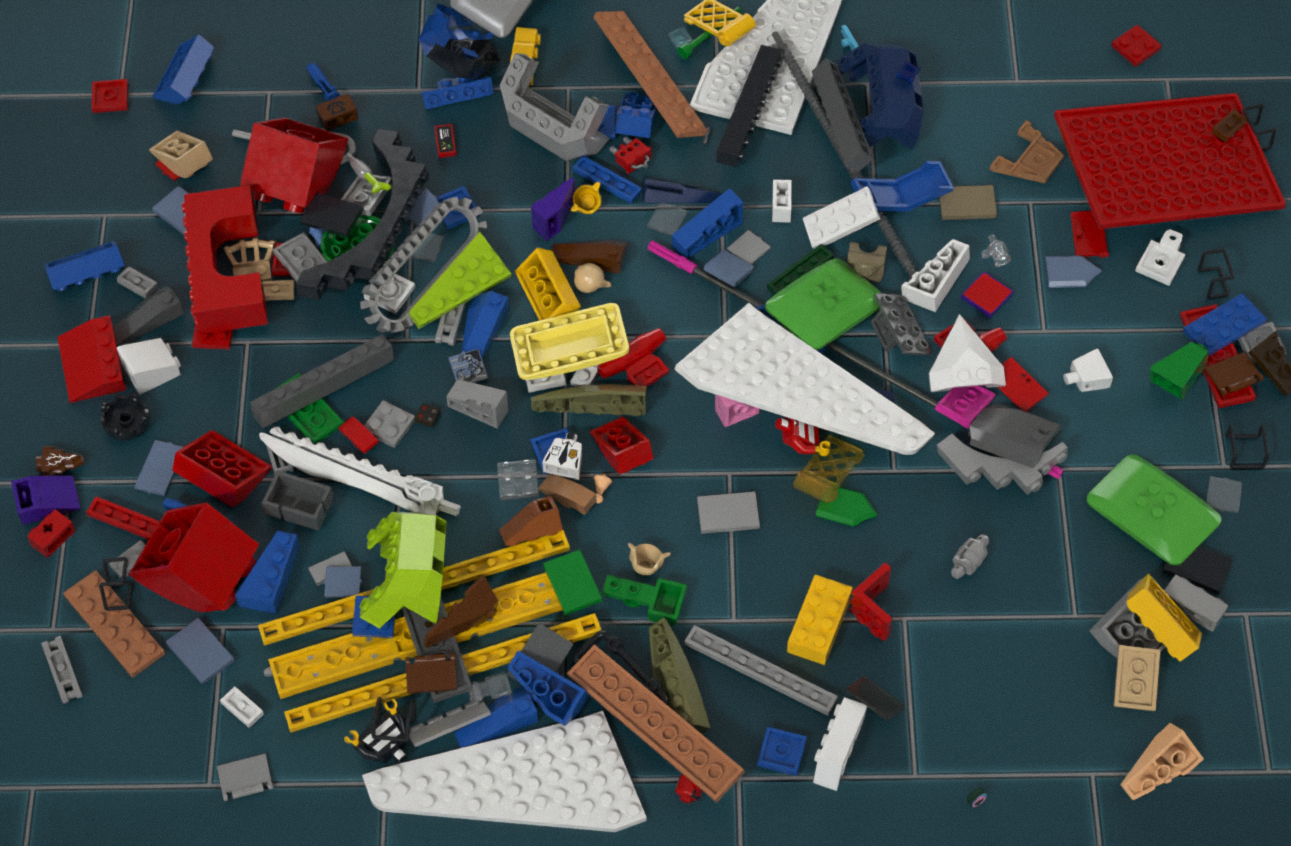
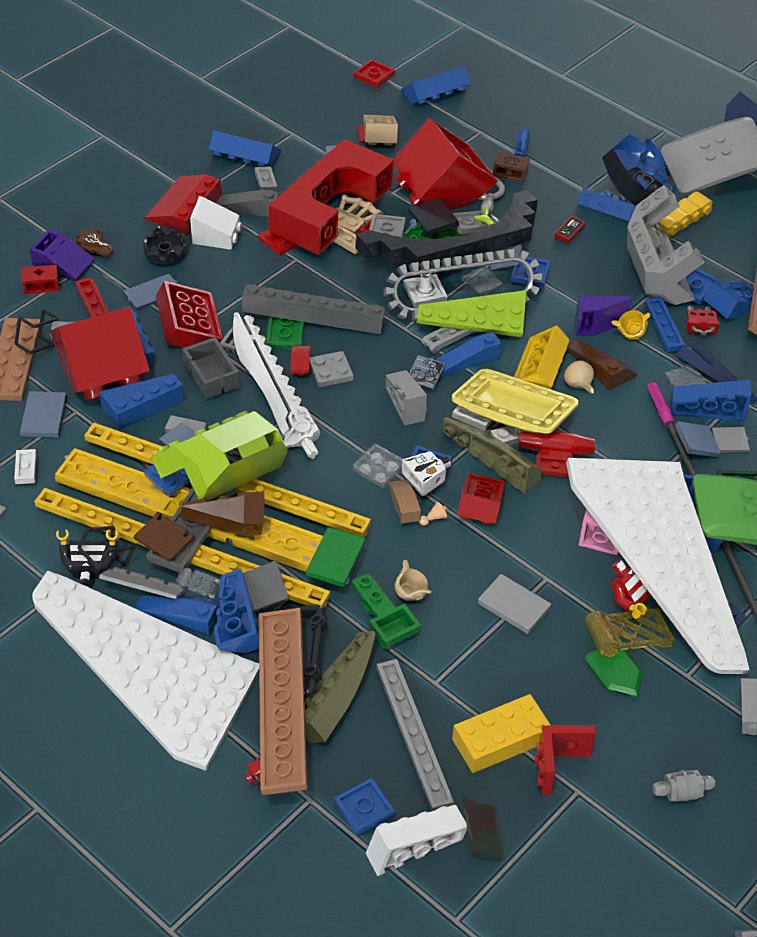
camera: 40 degrees right, 10 degrees down
(427, 415) = (363, 382): tile -> none
(533, 521) = (362, 498): dark orange slope -> none

